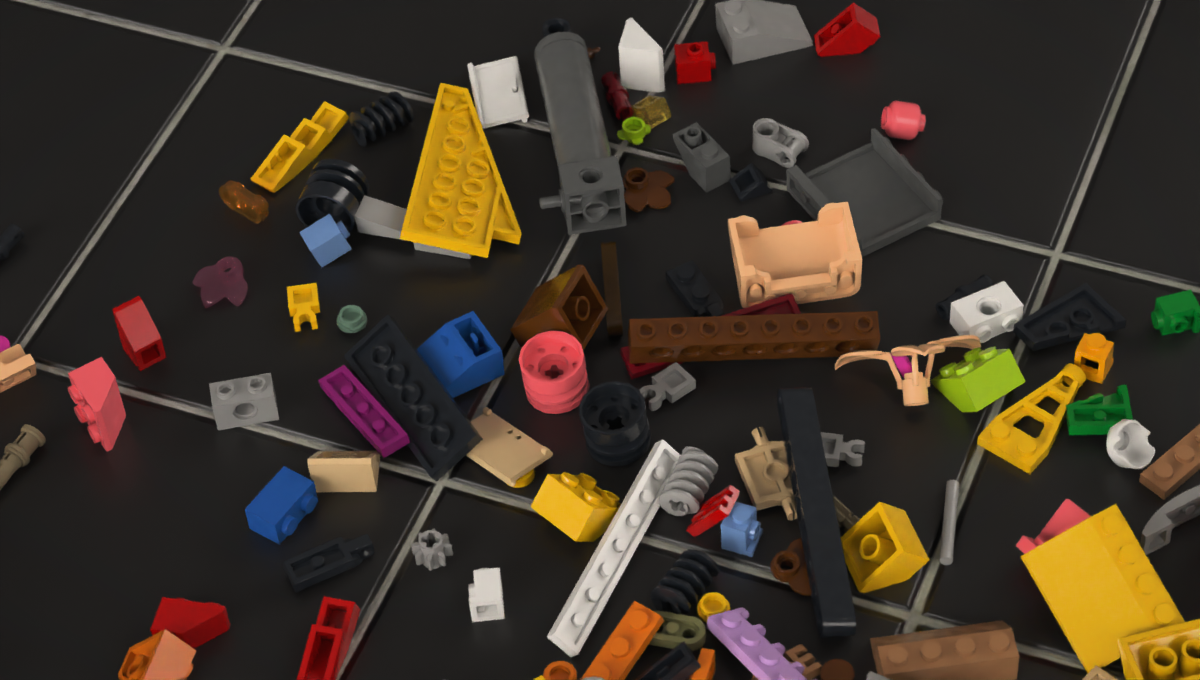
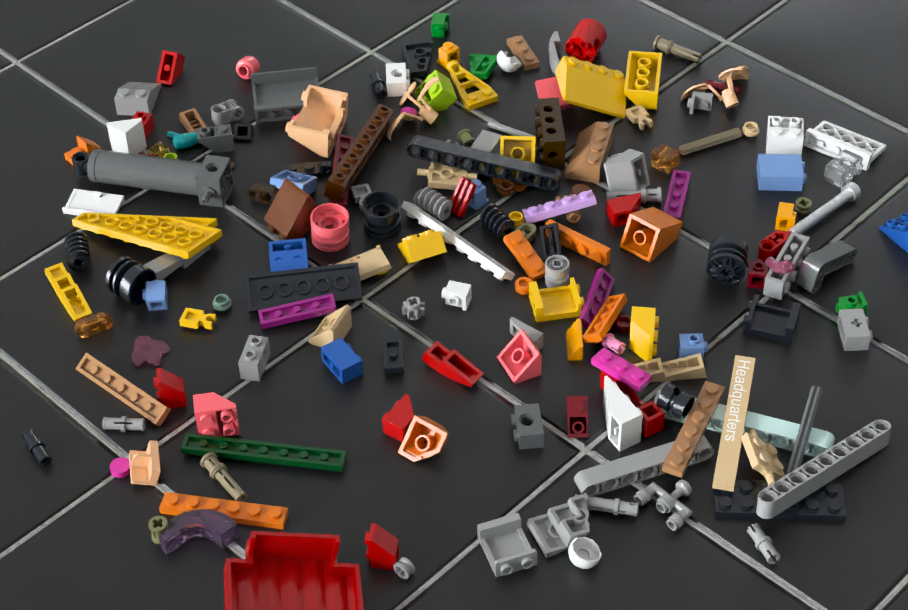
camera: 70 degrees left, 5 degrees down
(69, 493) = (265, 452): none -> dark green plate
(73, 318) = (124, 423): none -> light grey pin
(133, 284) = (123, 389): none -> plate
(603, 28) = (84, 145): none -> orange slope
(640, 286) = (305, 182): none -> medium blue plate
(679, 119) = (183, 140): none -> teal piece
(738, 100) = (190, 114): none -> medium nougat slope
(865, 491) = (486, 141): none -> light grey panel
(882, 467) = (466, 138): none -> olive bush
(946, 573) = (550, 133): none -> dark brown brick

